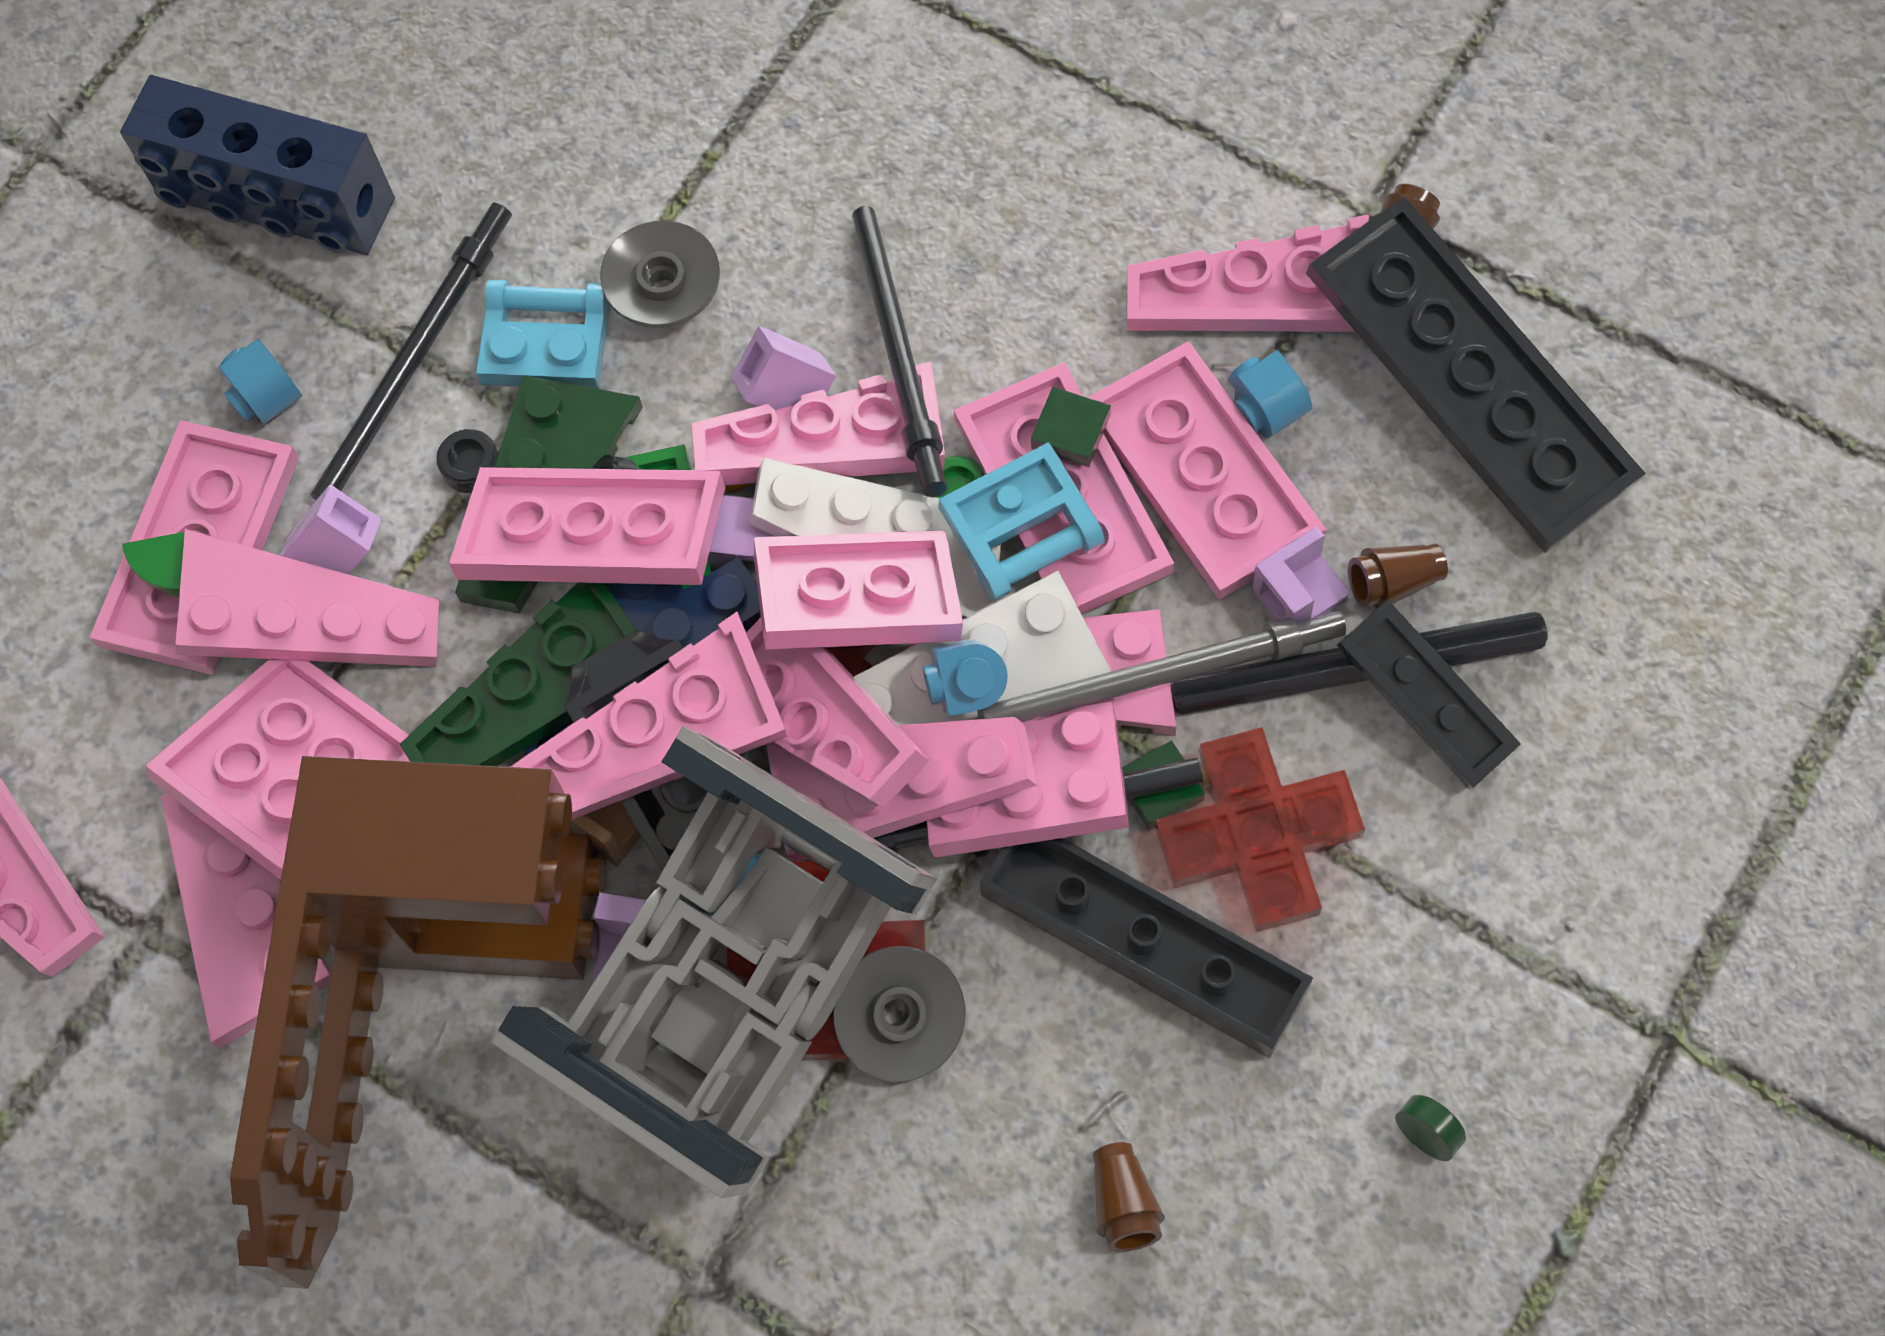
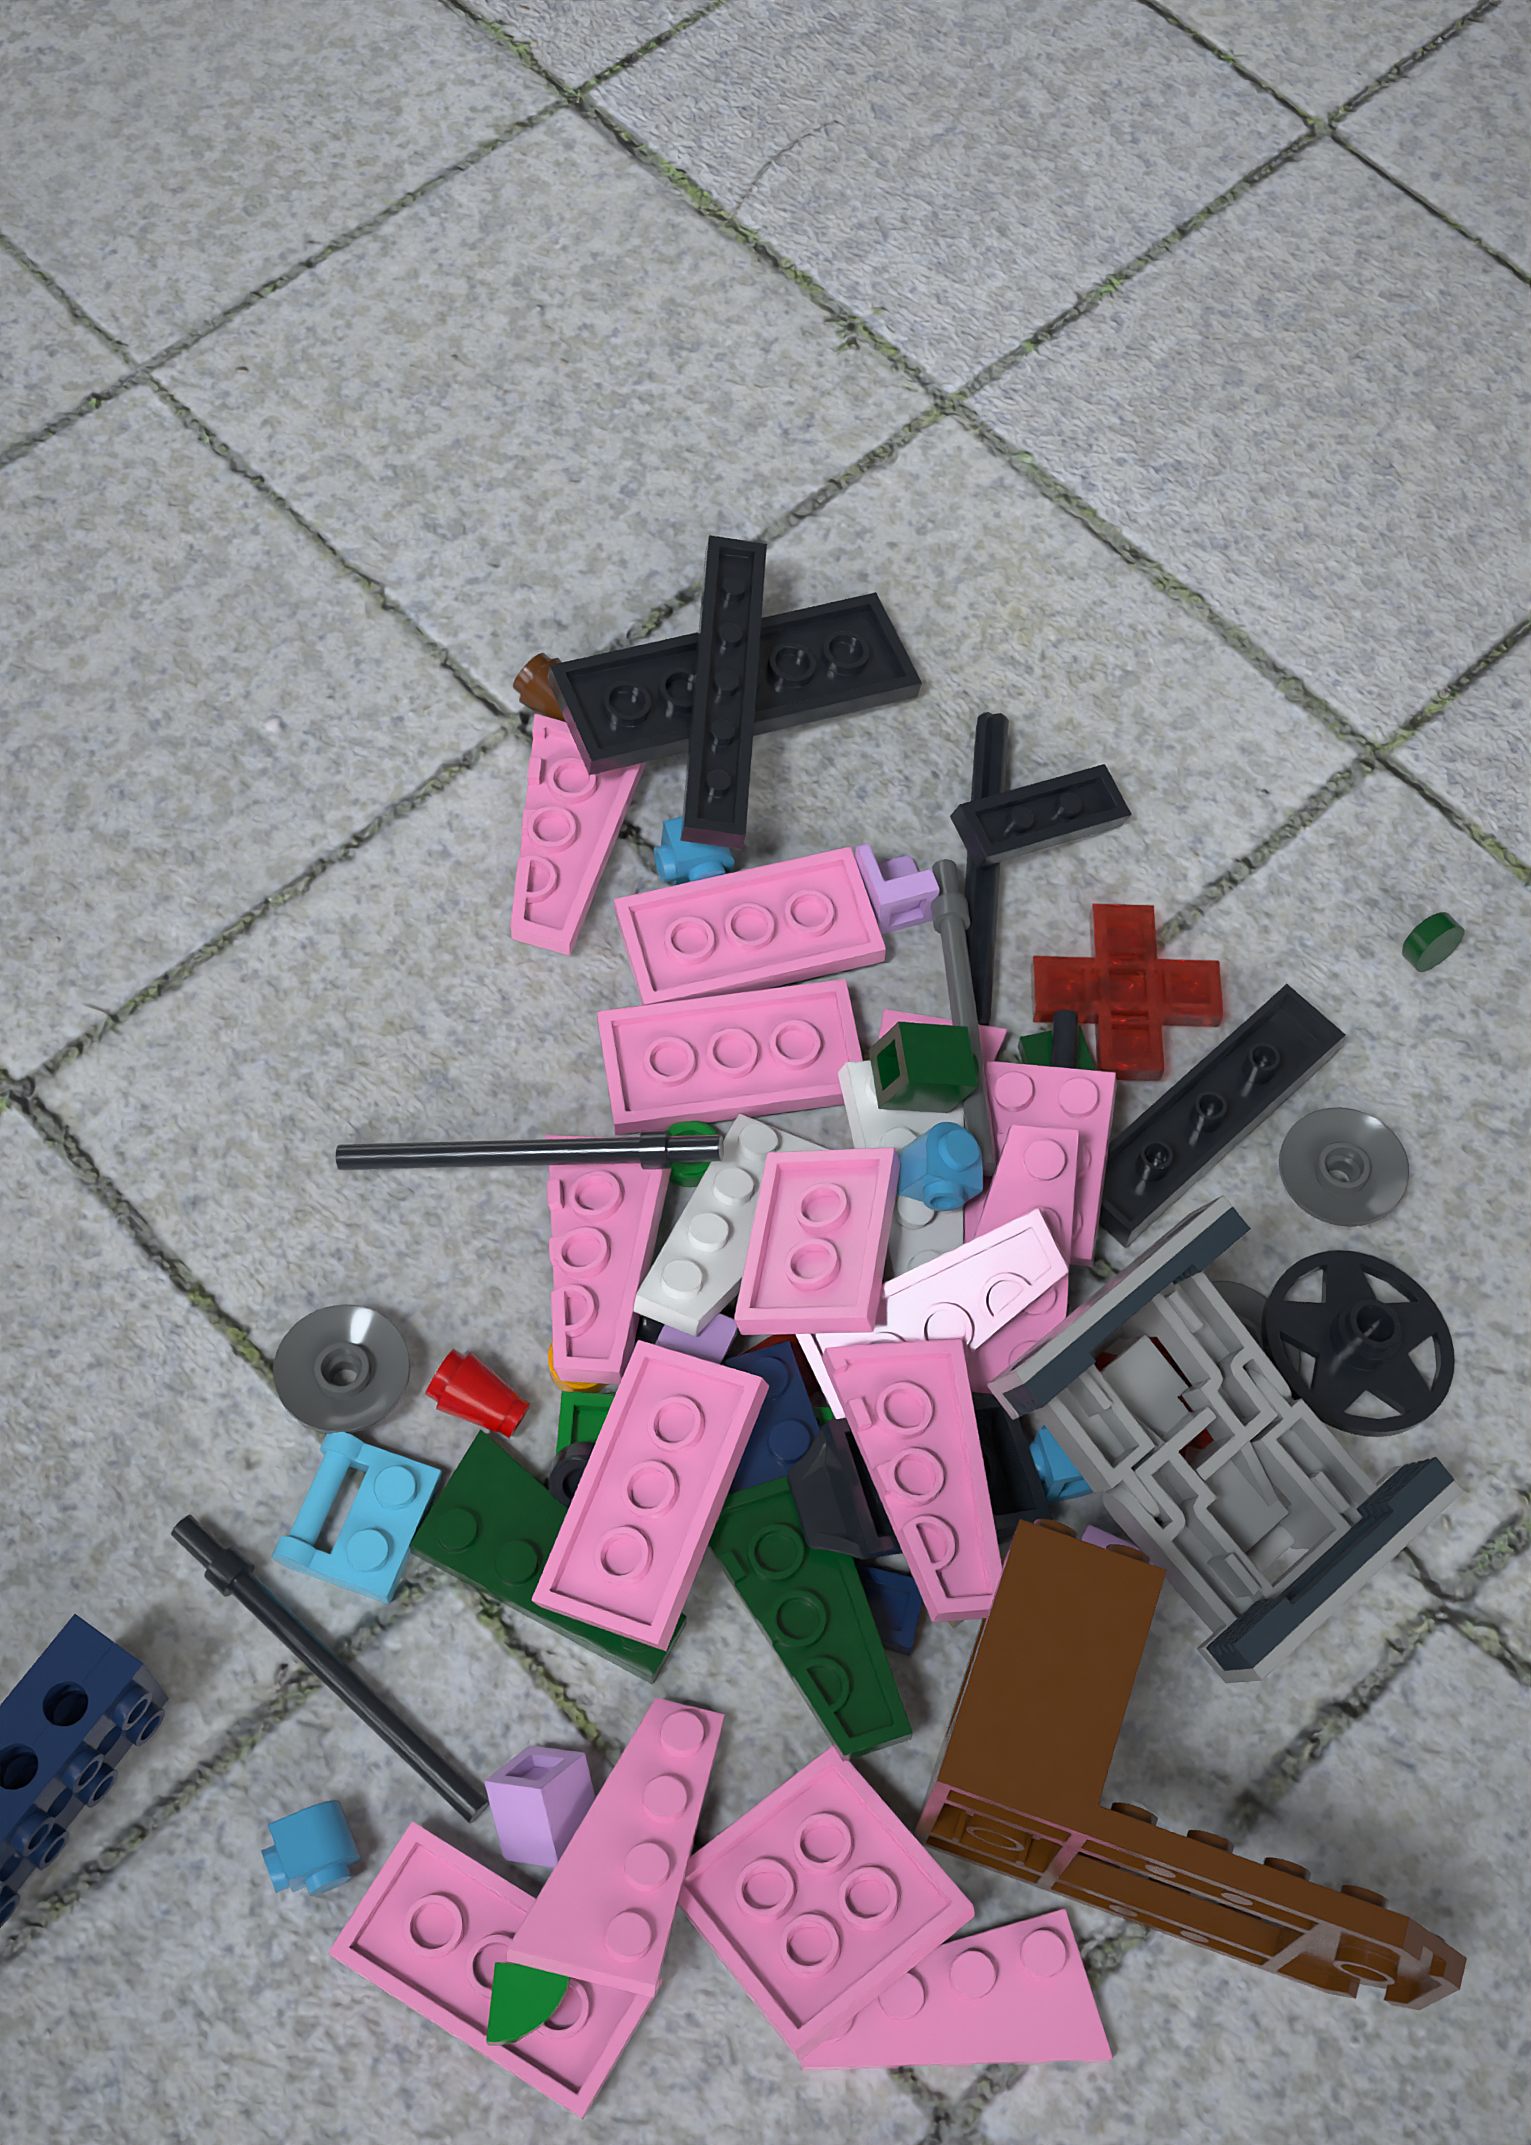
camera: 85 degrees left, 5 degrees down
(463, 455) = (487, 1634): black tile -> none
(669, 382) = (476, 1394): none -> red cone
(779, 370) = (508, 1278): lavender panel -> none
(937, 1132) = (1358, 1342): none -> black wheel
(1011, 503) = (753, 1090): medium azure plate -> none
(1063, 634) = (923, 1067): none -> dark green brick
(1071, 425) = (677, 1020): dark green tile -> none
(1124, 1200) = (1452, 1200): reddish brown cone -> none
(1128, 1047) = (1351, 1144): none -> dark grey dish
(1395, 572) = (907, 811): reddish brown cone -> none
(1438, 351) = (724, 694): none -> black plate

